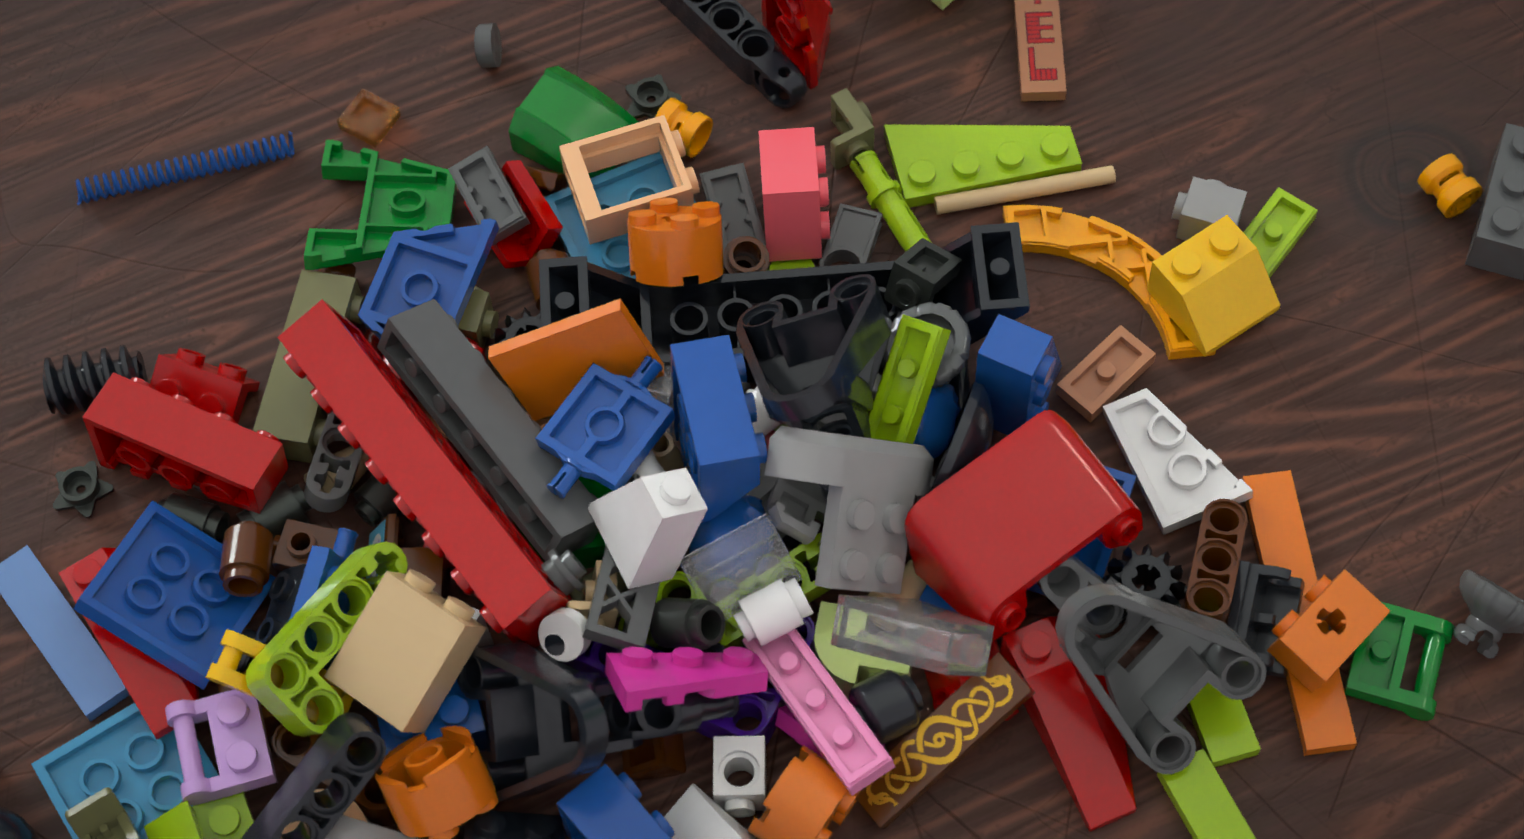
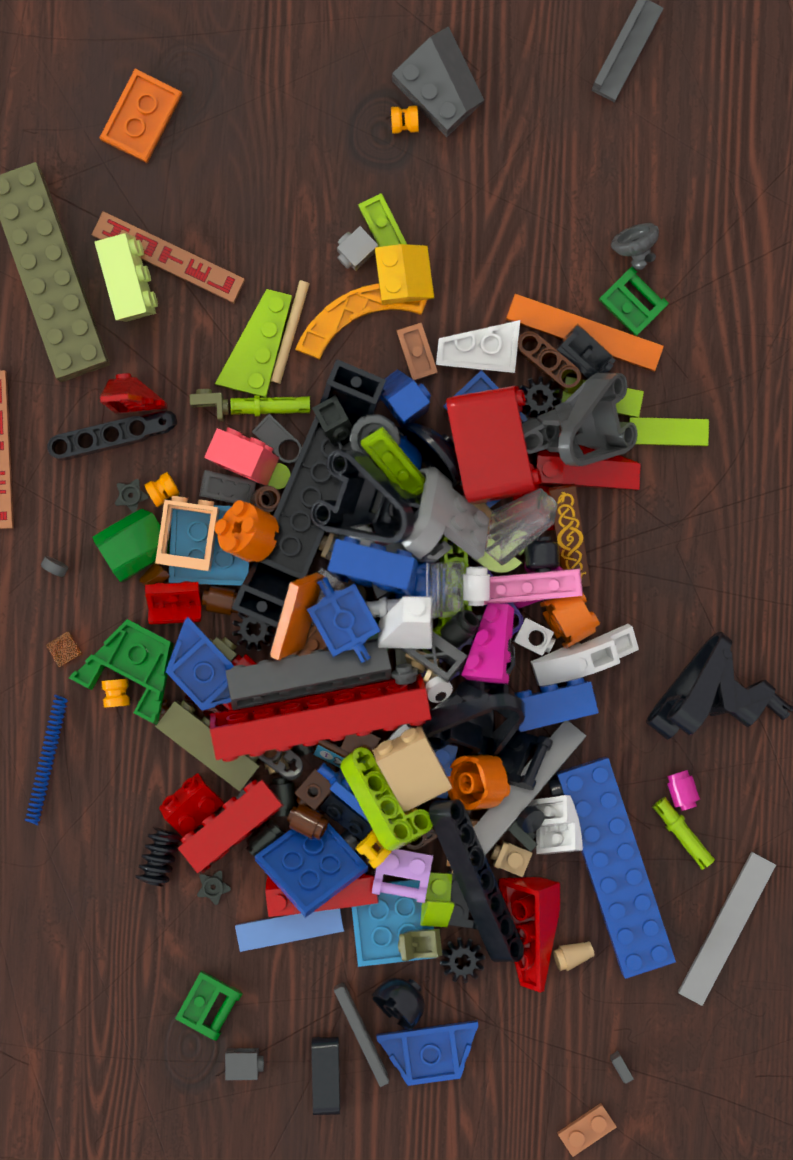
camera: 65 degrees left, 25 degrees up
(333, 206) = (115, 693): none -> light orange wheel
(489, 192) = (159, 610): dark grey plate -> none
(1348, 611) = (611, 316): orange brick -> none

